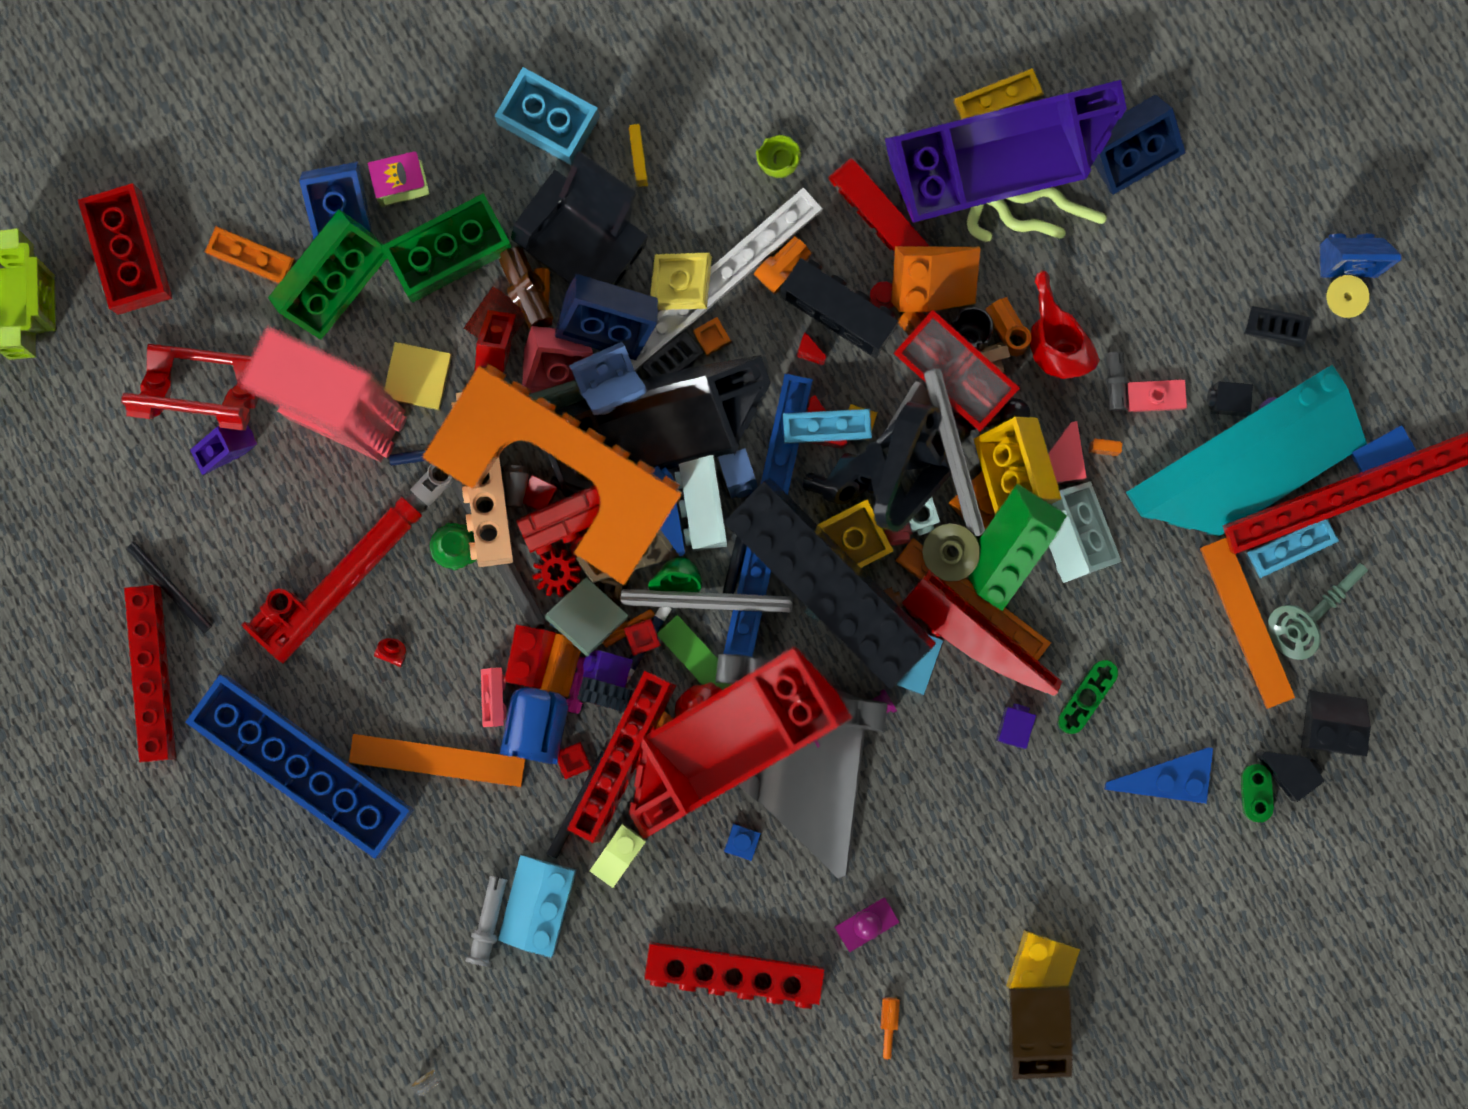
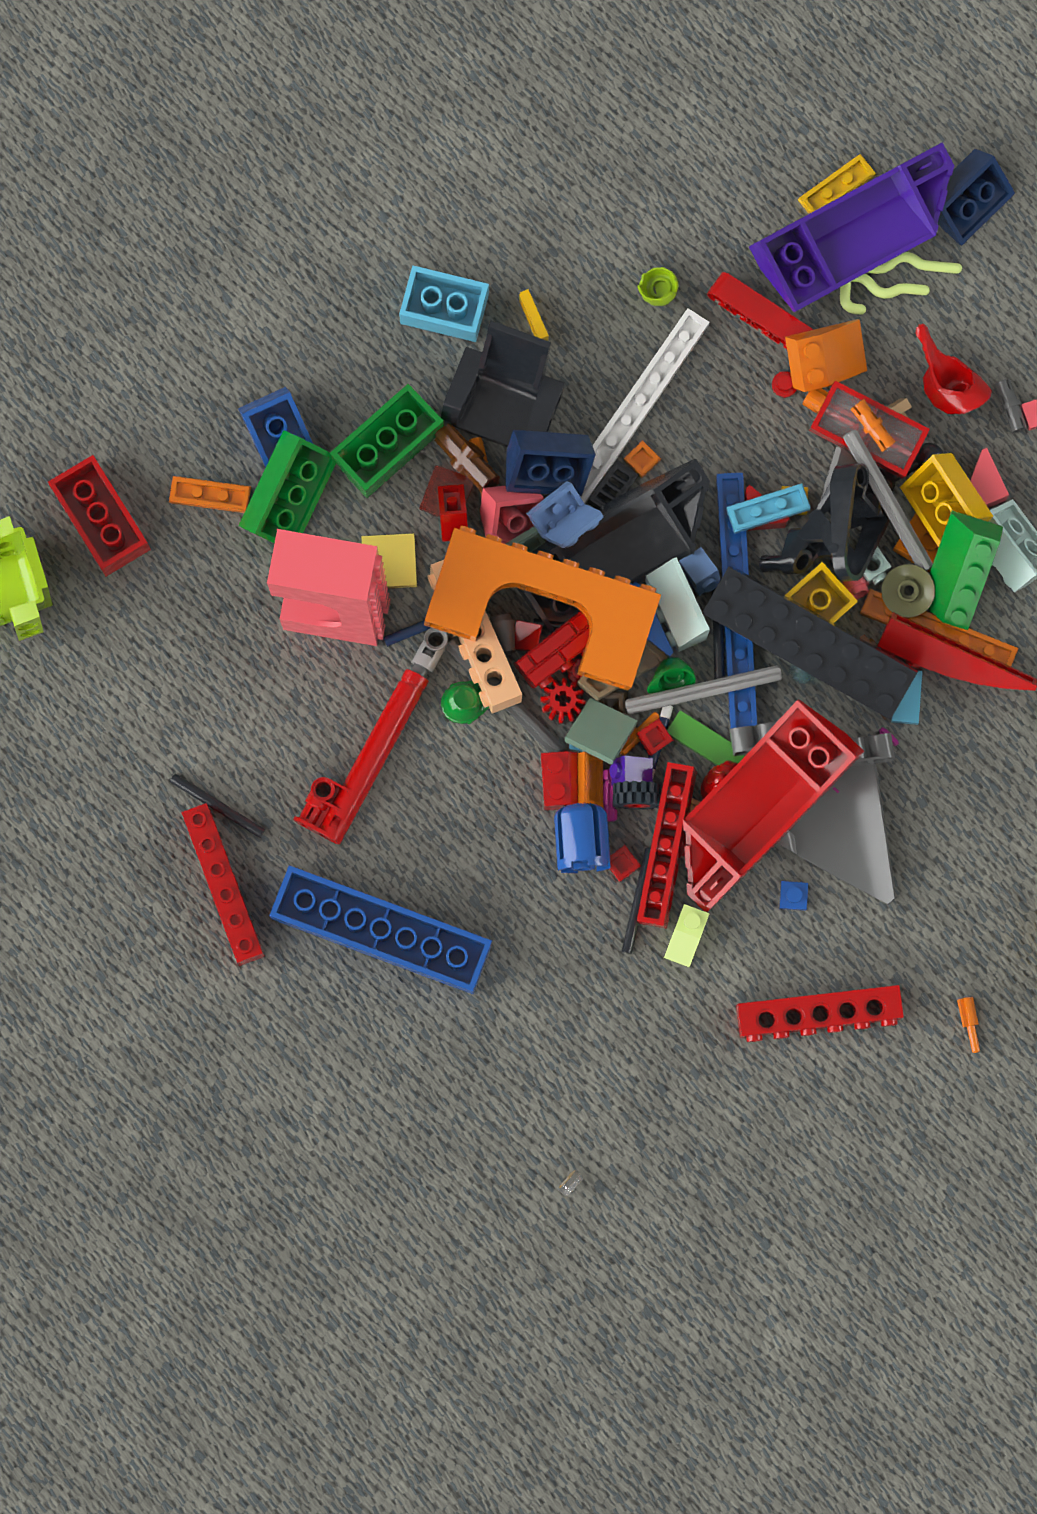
camera: 15 degrees left, 5 degrees down
(156, 388) = (160, 634): red piece -> none
(222, 447) = (233, 667): dark purple slope -> none
(391, 651) = (433, 809): red plate -> none
(398, 178) = (326, 392): dark pink piece -> none
(437, 760) = (501, 895): orange tile -> none
(484, 936) = (587, 1038): light grey pin -> none
(492, 688) = (535, 825): coral plate -> none
(537, 906) = (626, 998): medium azure slope -> none
(681, 280) = (603, 415): light yellow tile -> none
(777, 268) = (686, 384): orange piece -> none
(810, 351) = (734, 449): red slope -> none
(838, 307) = (749, 403): black brick -> none
(866, 924) = (924, 939): magenta tile -> none
(959, 369) = (873, 425): none -> orange pin
(976, 324) = (875, 387): black hair -> none
(1008, 324) = (901, 380): orange piece -> none
(1016, 726) = (1008, 729): dark purple brick -> none
(1105, 447) = (1017, 465): orange tile -> none

